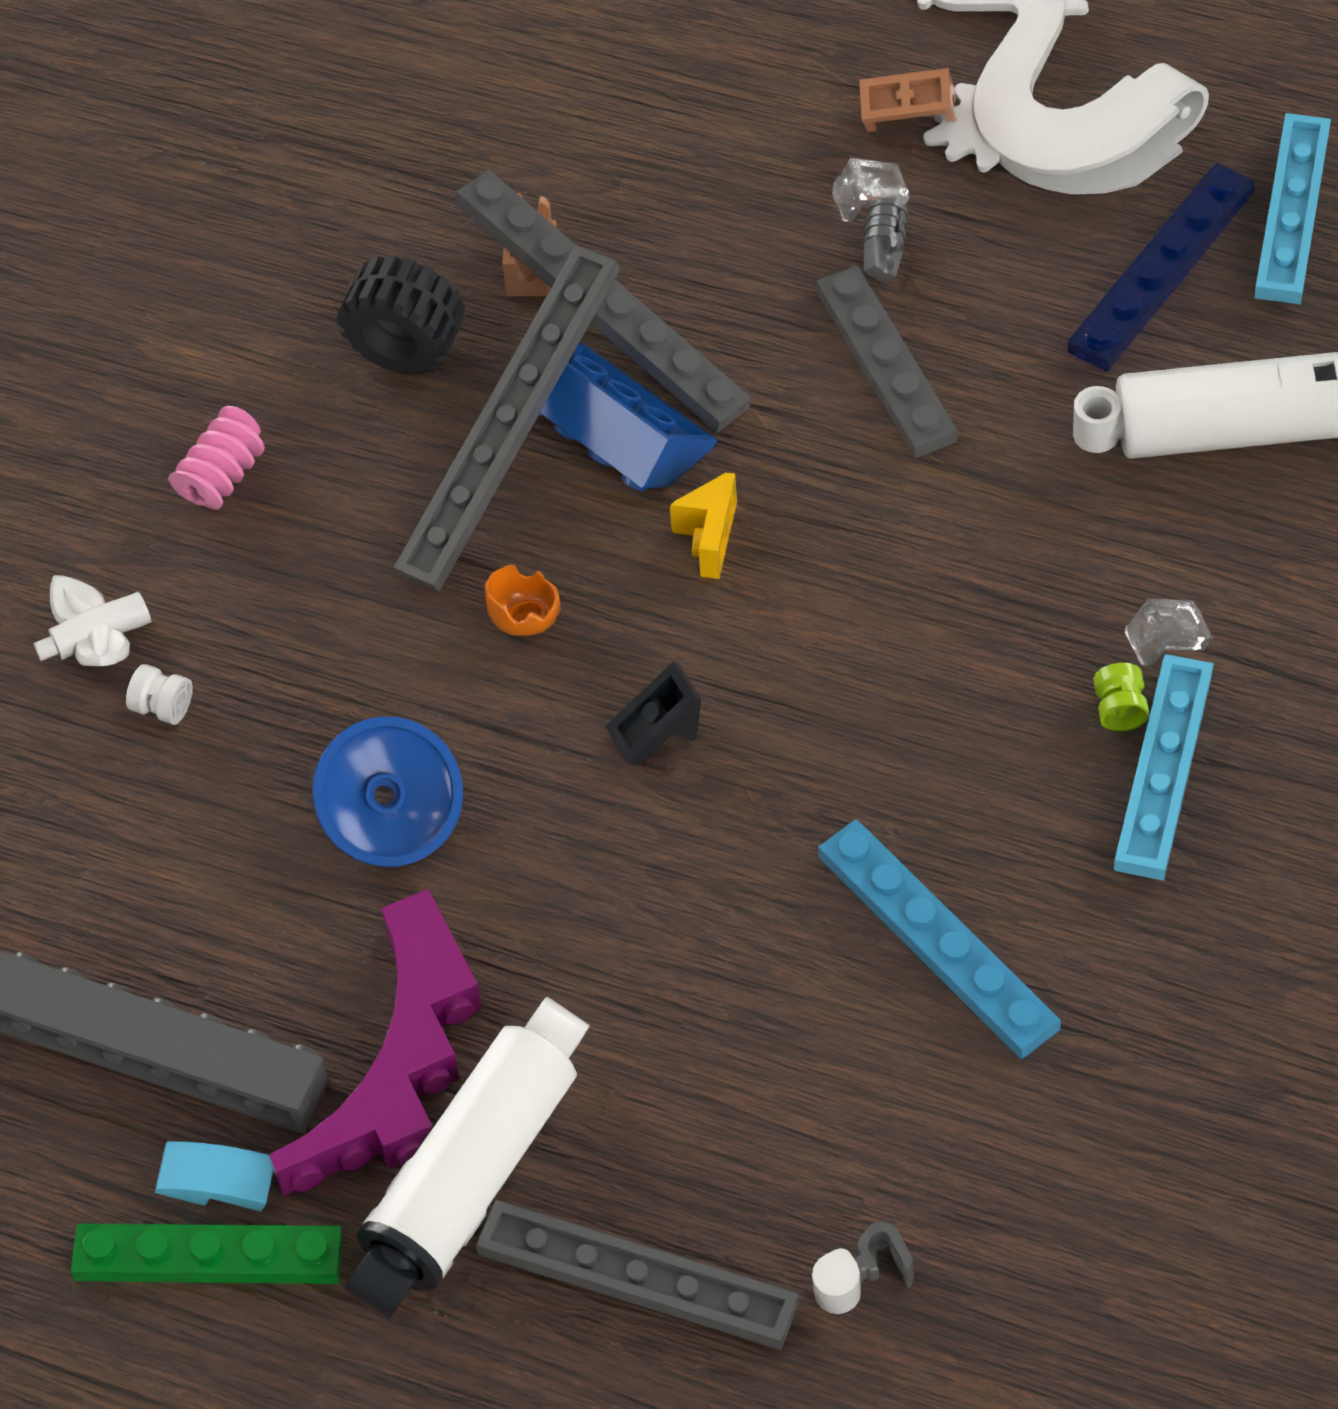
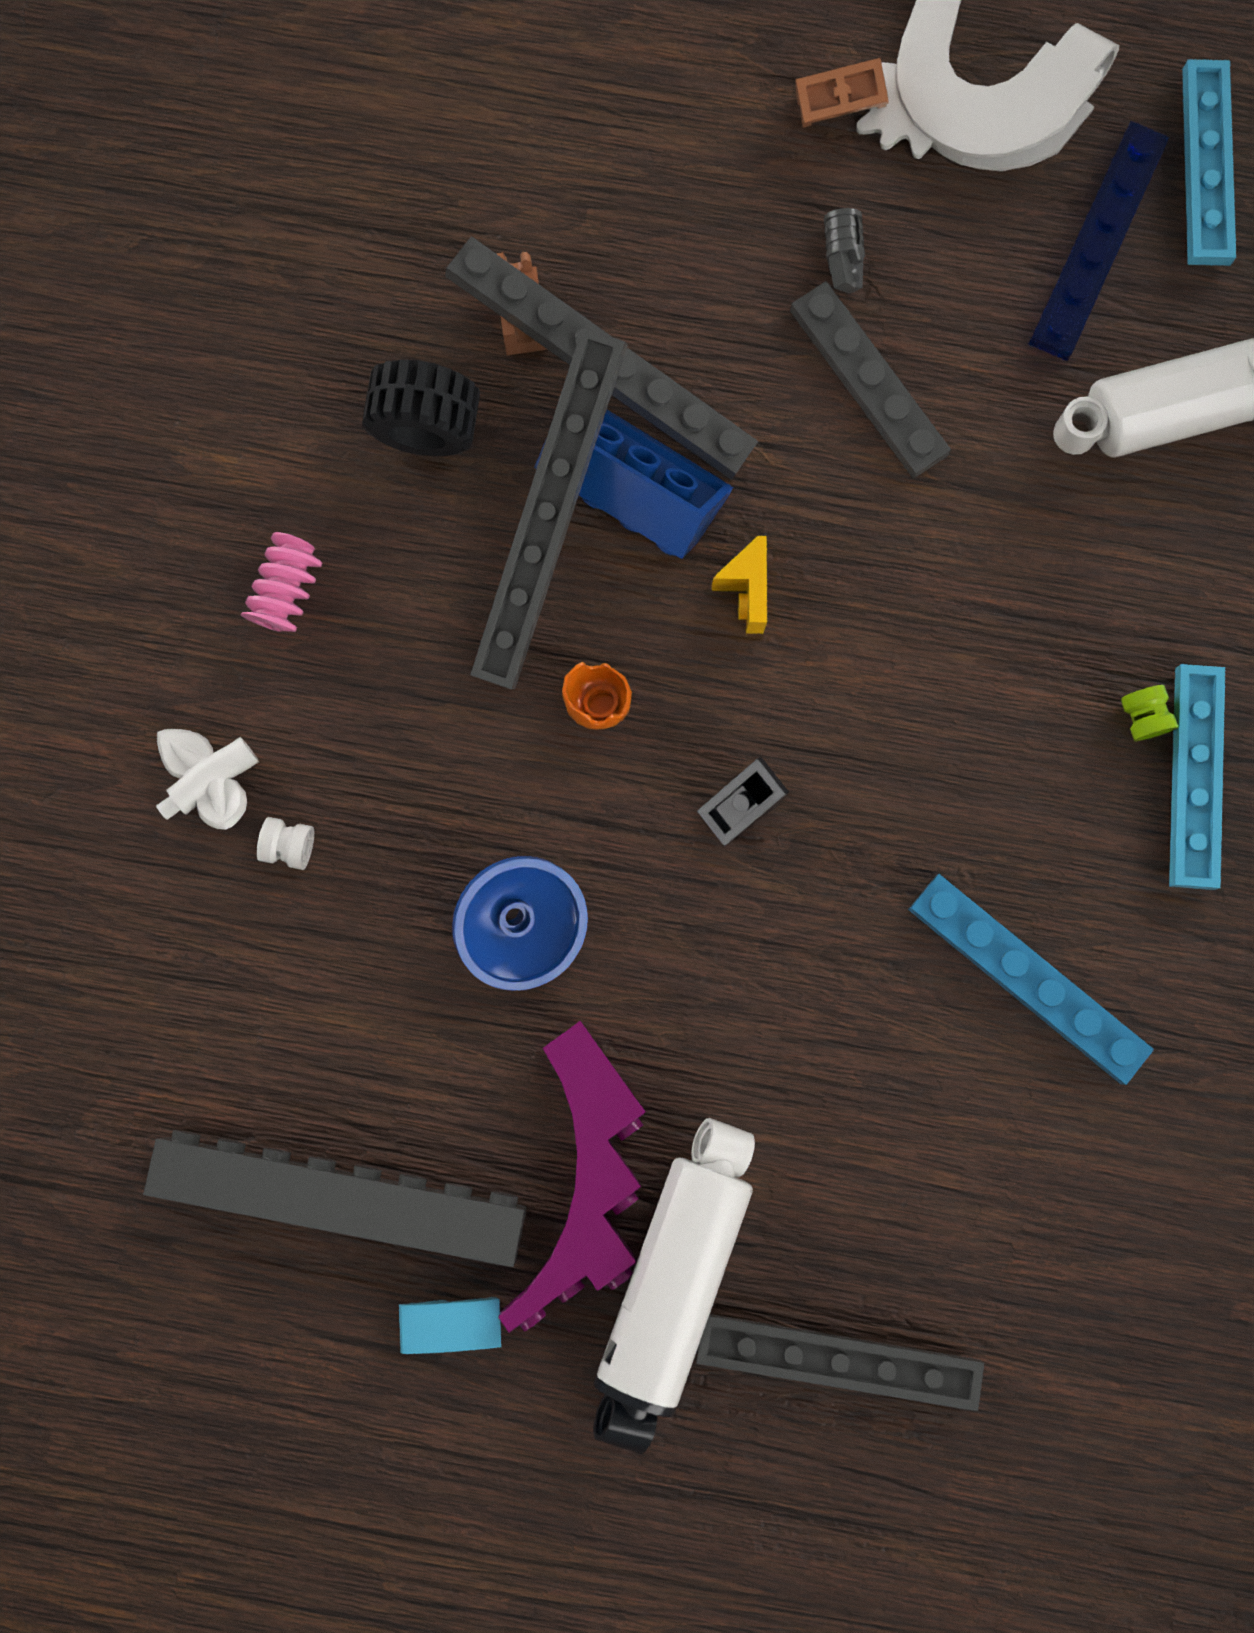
camera: 15 degrees left, 25 degrees up
(207, 1253) = (459, 1400): green plate -> none
(839, 1275) = (1013, 1336): leg -> none
(867, 181) = (819, 192): clear bracket -> none
(1166, 625) = (1174, 634): clear bracket -> none

